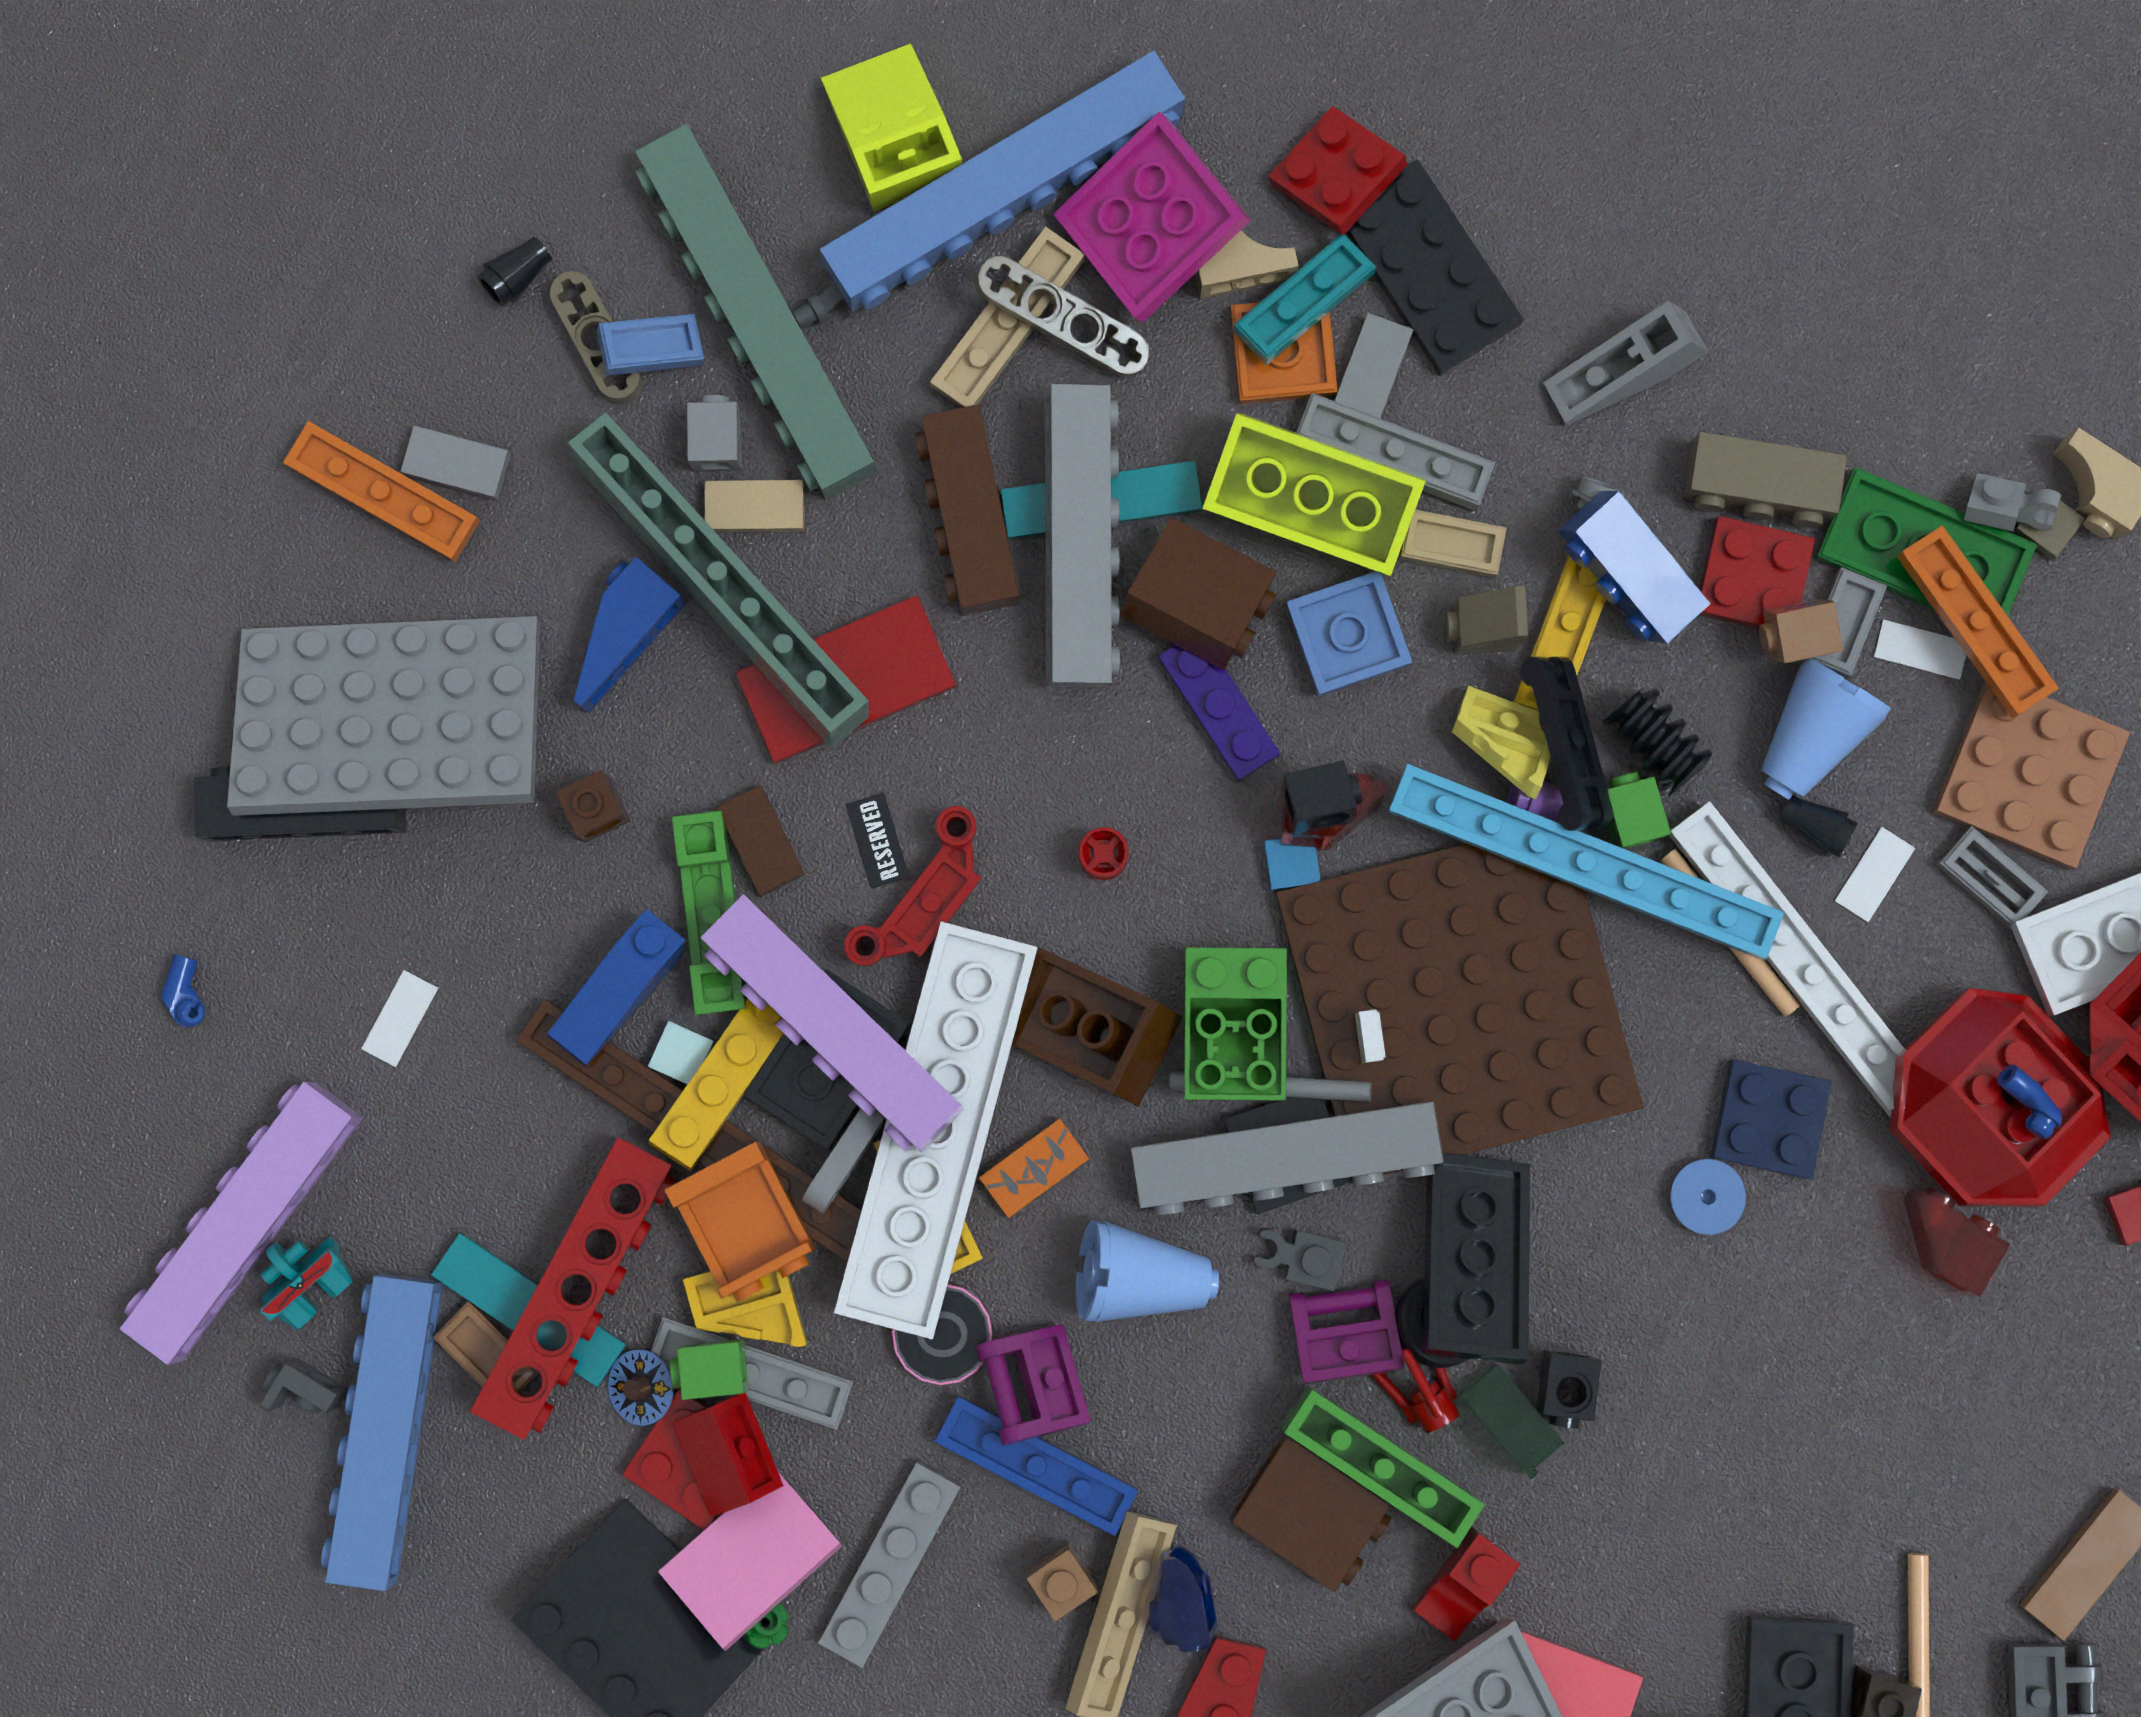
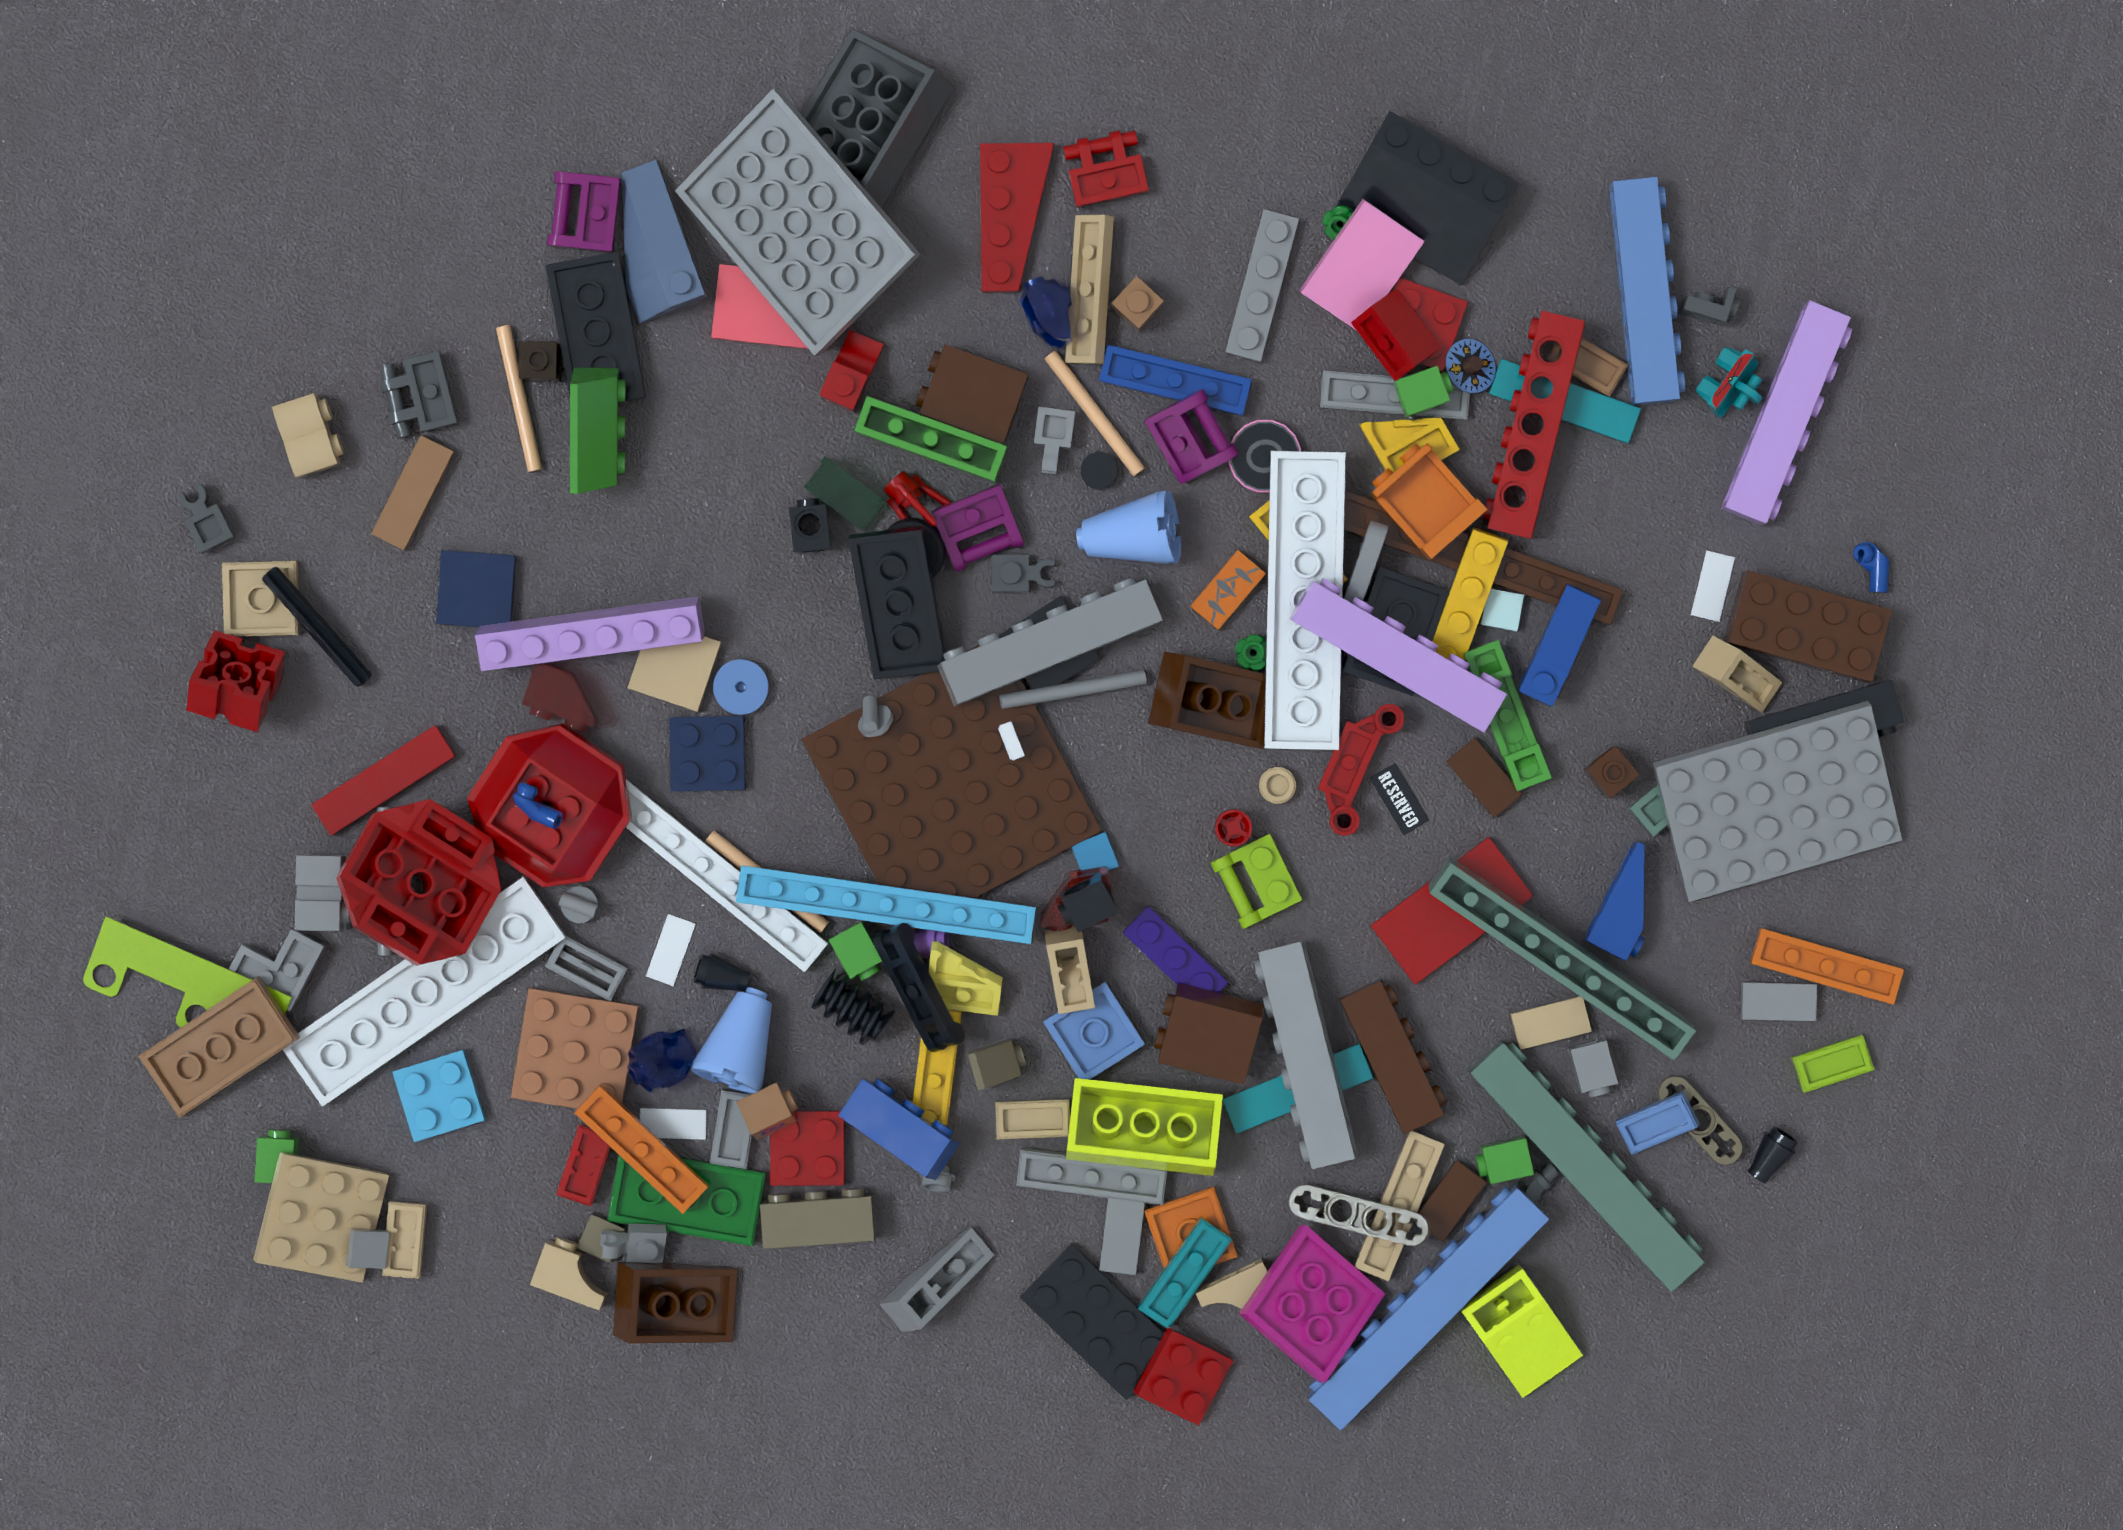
camera: 160 degrees right, 5 degrees up
(288, 933) = (1807, 626): none -> reddish brown brick
(396, 895) = (1737, 673): none -> tan arch
(407, 368) = (1832, 1063): none -> lime tile
(555, 744) = (1650, 811): none -> sand green plate
(857, 343) = (1504, 1160): none -> bright green brick
(939, 313) = (1451, 1199): none -> reddish brown tile
(1032, 896) = (1277, 785): none -> tan tile
(1033, 1084) = (1243, 648): none -> green plate
(1073, 782) = (1267, 875): none -> lime plate
(1153, 1447) = (1094, 413): none -> light nougat bar
(1166, 1368) = (1099, 470): none -> black tile
(1214, 1435) = (1054, 432): none -> light grey plate
(1235, 1023) = (1109, 727): bright green slope -> none
(1363, 718) = (1069, 970): none -> tan arch
(1543, 1111) = (875, 718): none -> light grey plate
(1788, 1247) = (676, 672): none -> tan tile
(1835, 1593) = (596, 428): none -> bright green slope
(1898, 1316) = (590, 633): none -> lavender brick
(1923, 732) = (661, 1060): none -> clear blue hand
(1974, 416) = (674, 1303): none -> reddish brown slope
(1985, 962) = (579, 904): none -> light grey plate
(2032, 1412) = (475, 588): none -> dark blue tile
(2055, 615) = (584, 1166): none -> red plate

